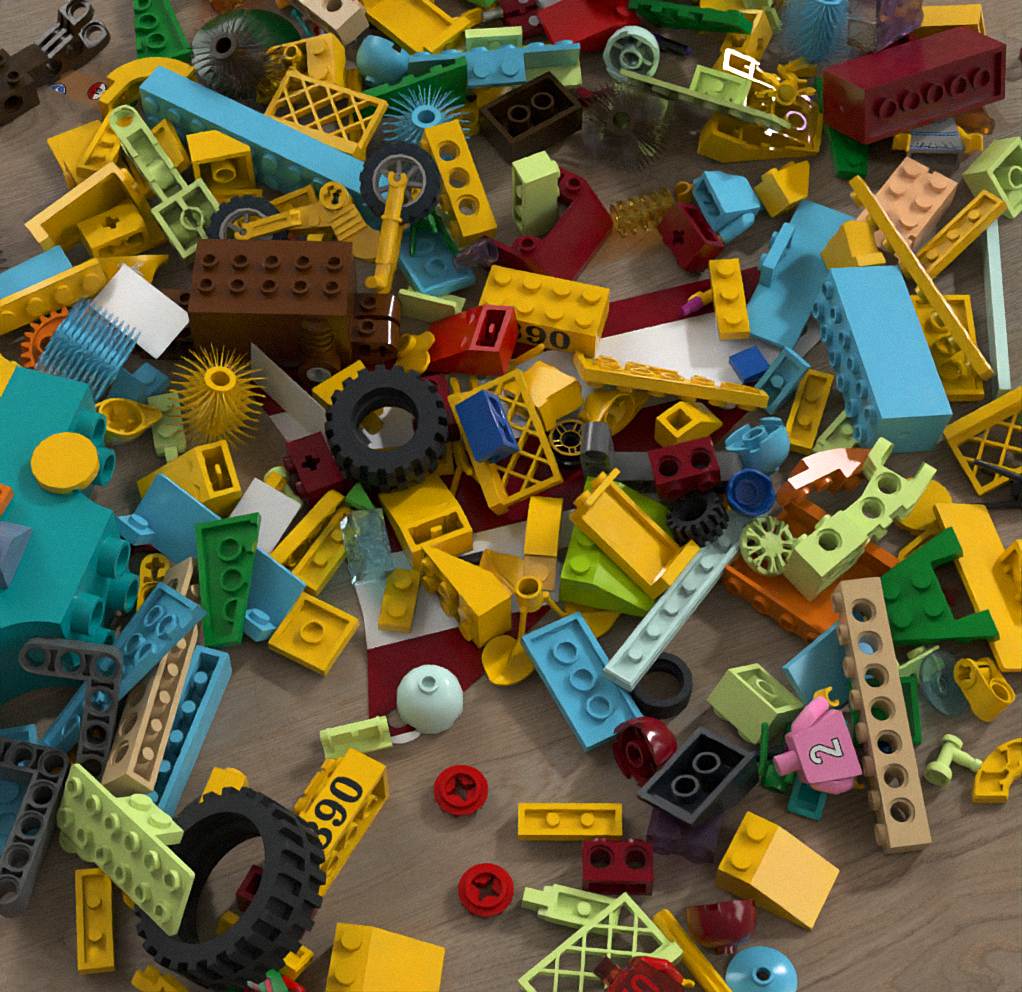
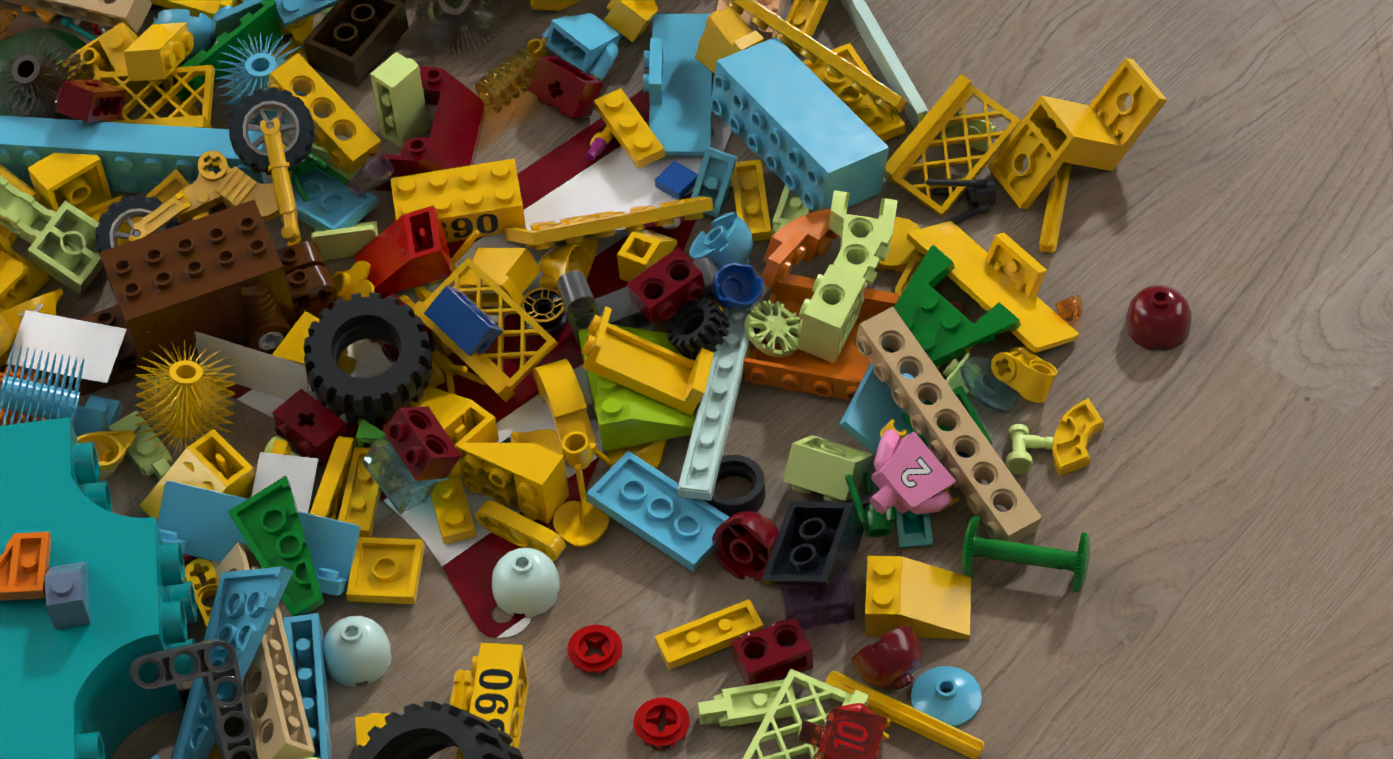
camera: 20 degrees left, 5 degrees down
(65, 463) = (86, 492): yellow tile -> none
(251, 700) = (356, 651): none -> light aqua cylinder
(267, 94) = (91, 100): none -> dark red brick
(346, 71) = (158, 51): none -> yellow brick
(361, 736) = (460, 651): yellowish green hinge -> none
(392, 530) = (422, 443): none -> dark red brick
(448, 646) = (519, 529): none -> yellow beam
(855, 844) = (1025, 554): none -> green hose

